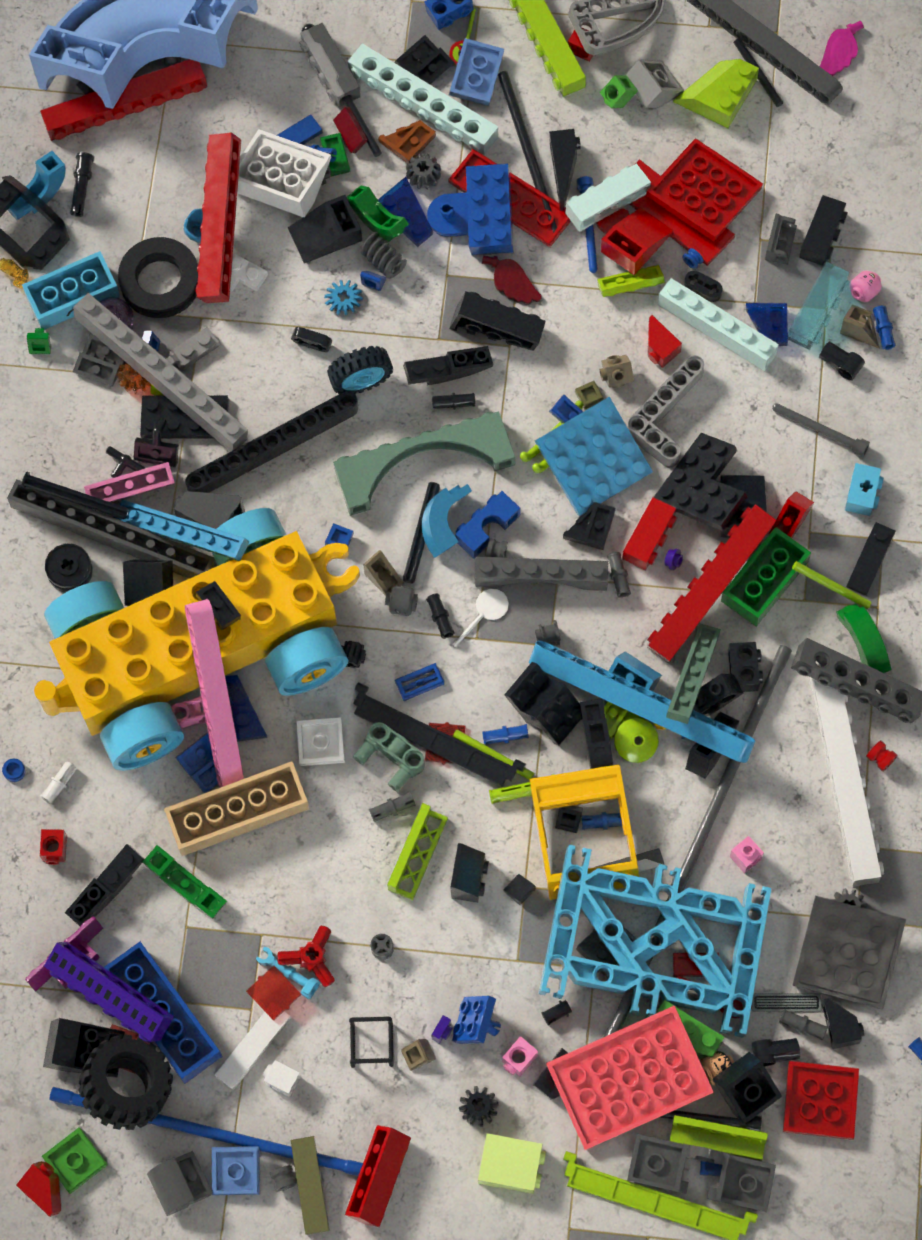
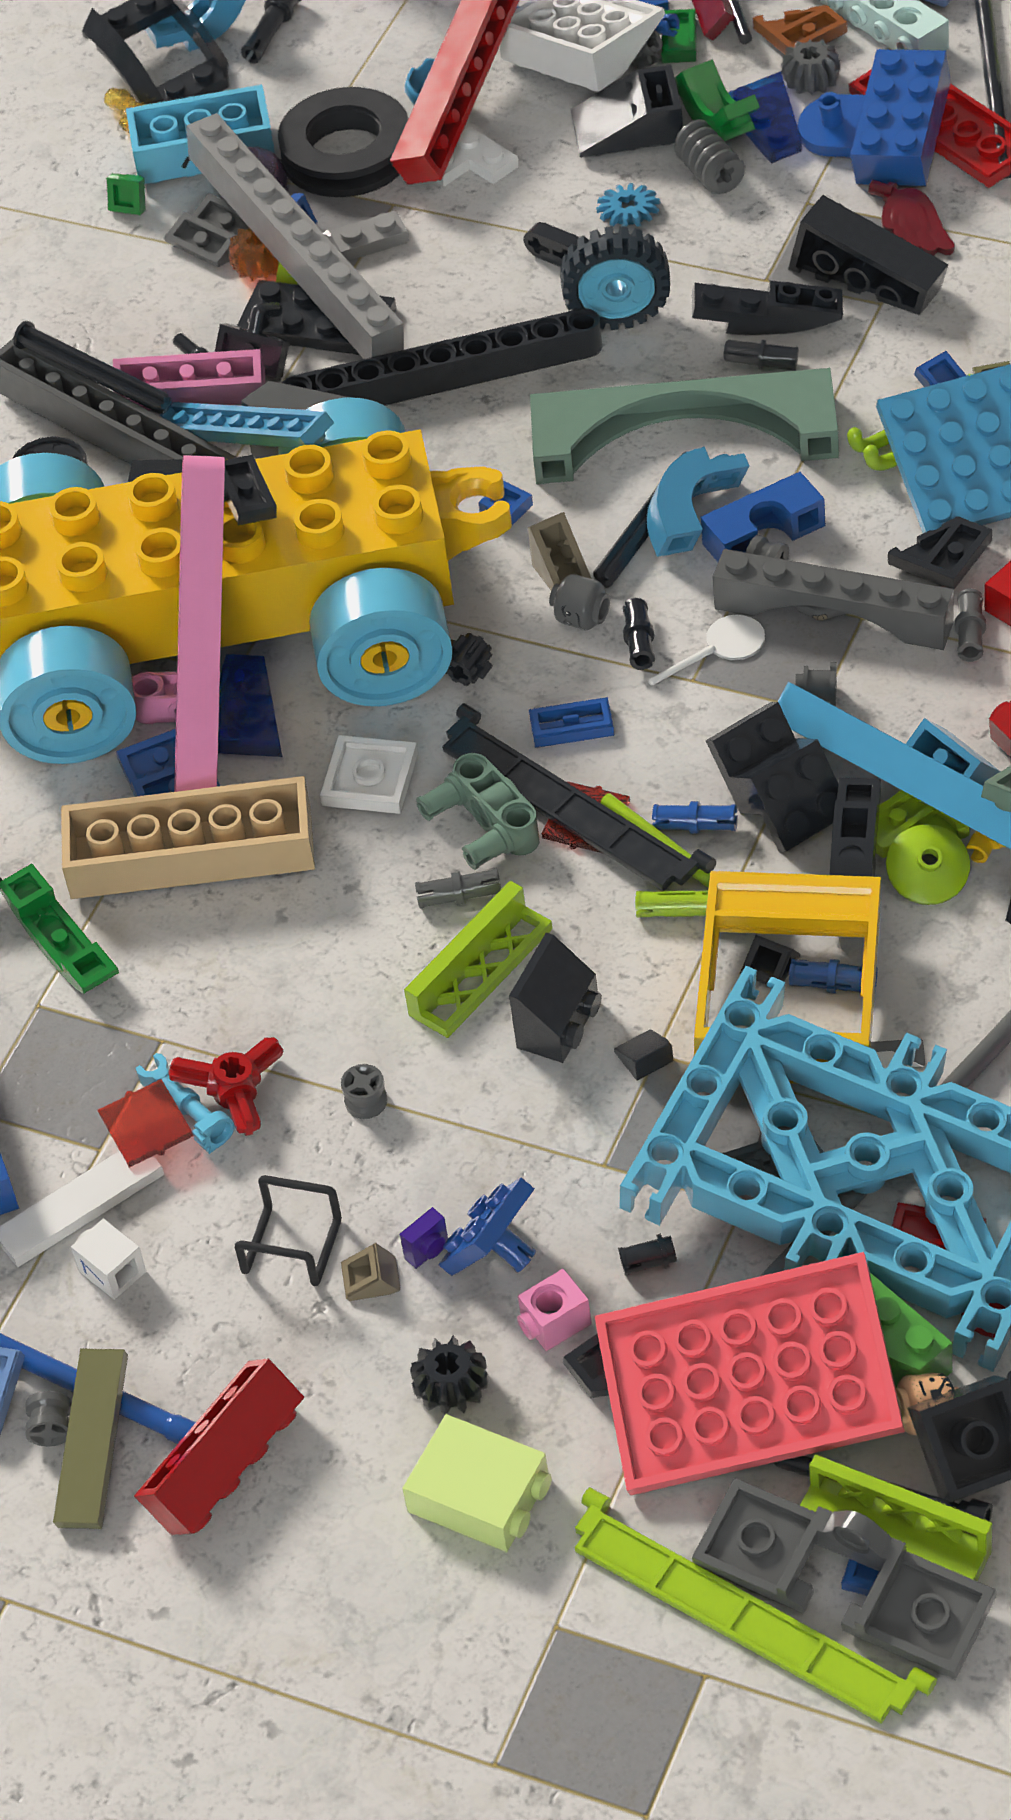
camera: 20 degrees right, 20 degrees down
(372, 280) = (682, 187): blue slope -> none

